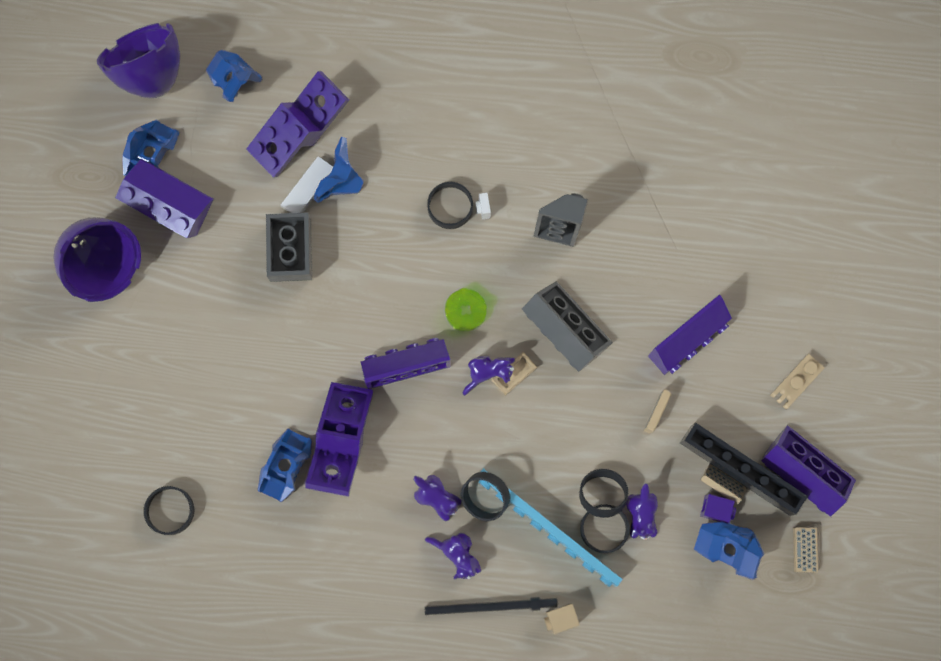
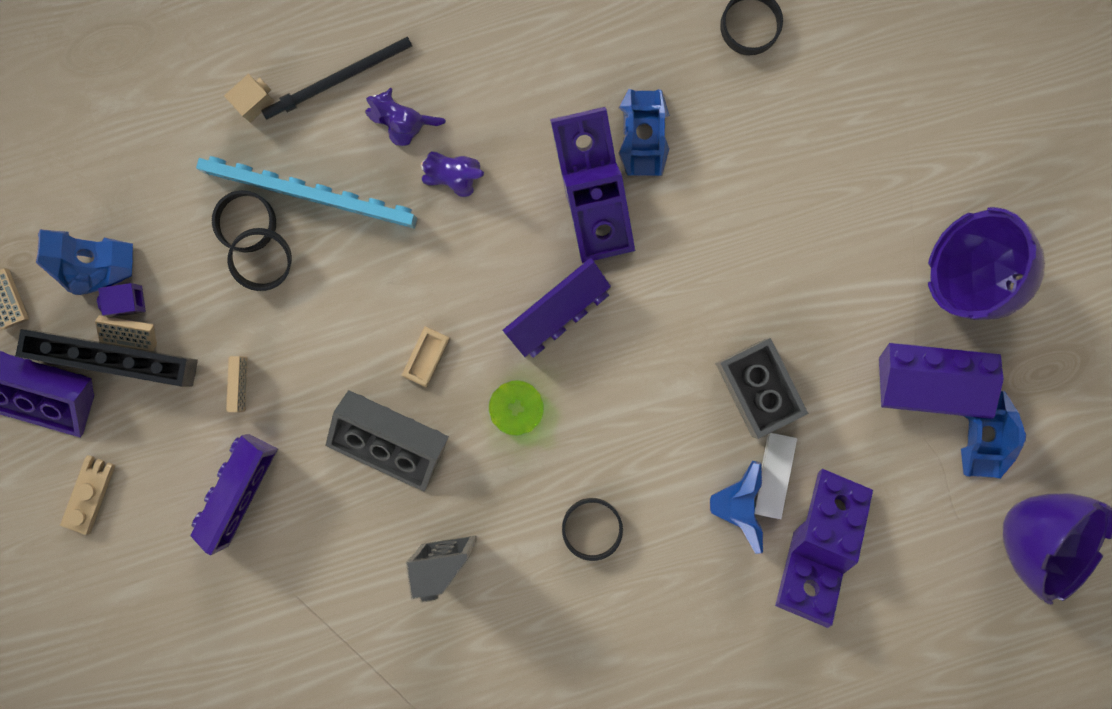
camera: 165 degrees right, 10 degrees up
(227, 62) = (950, 589): blue piece -> none
(473, 509) = (396, 175): black tyre -> none
(483, 206) = (551, 545): white plate -> none
(484, 368) = (460, 344): dark purple animal -> none
(643, 509) = (204, 255): dark purple animal -> none

